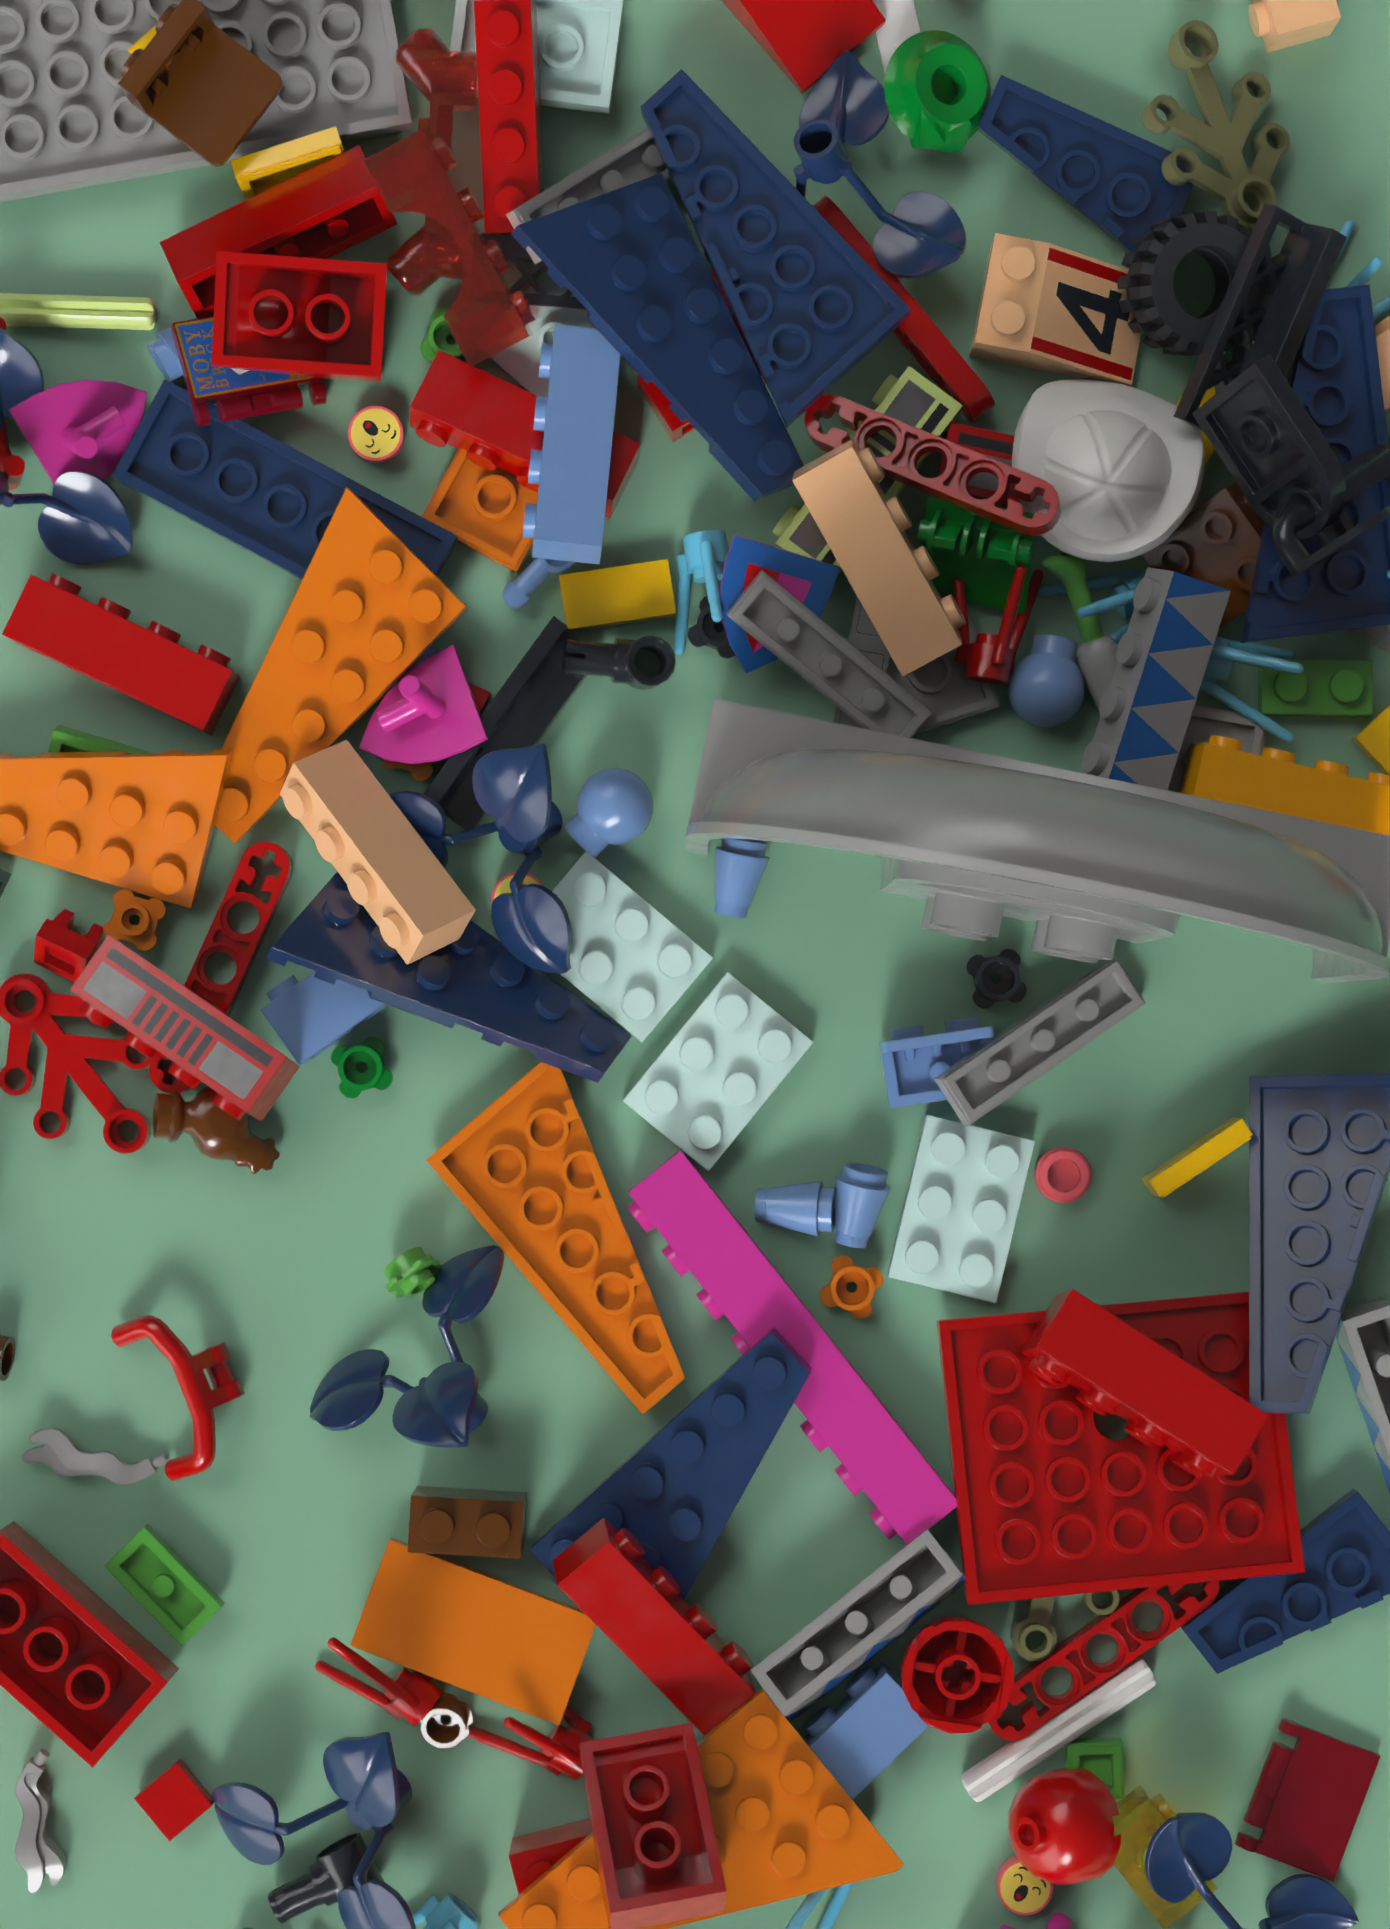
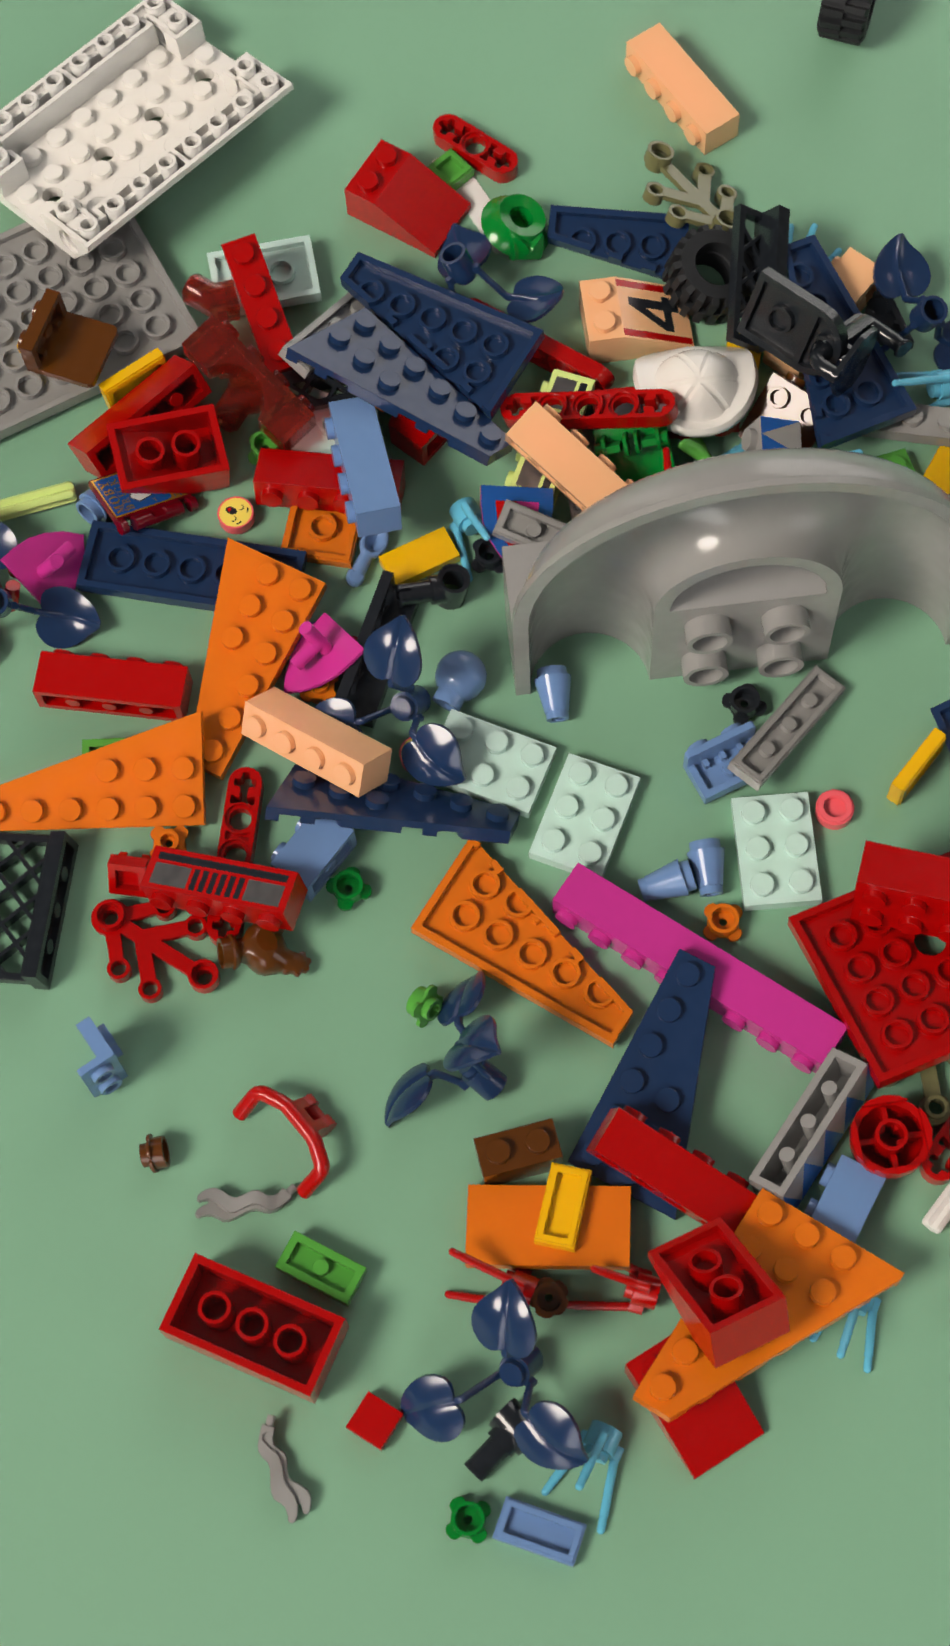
camera: 10 degrees left, 20 degrees down
(499, 1619) = (563, 1207): none -> yellow tile

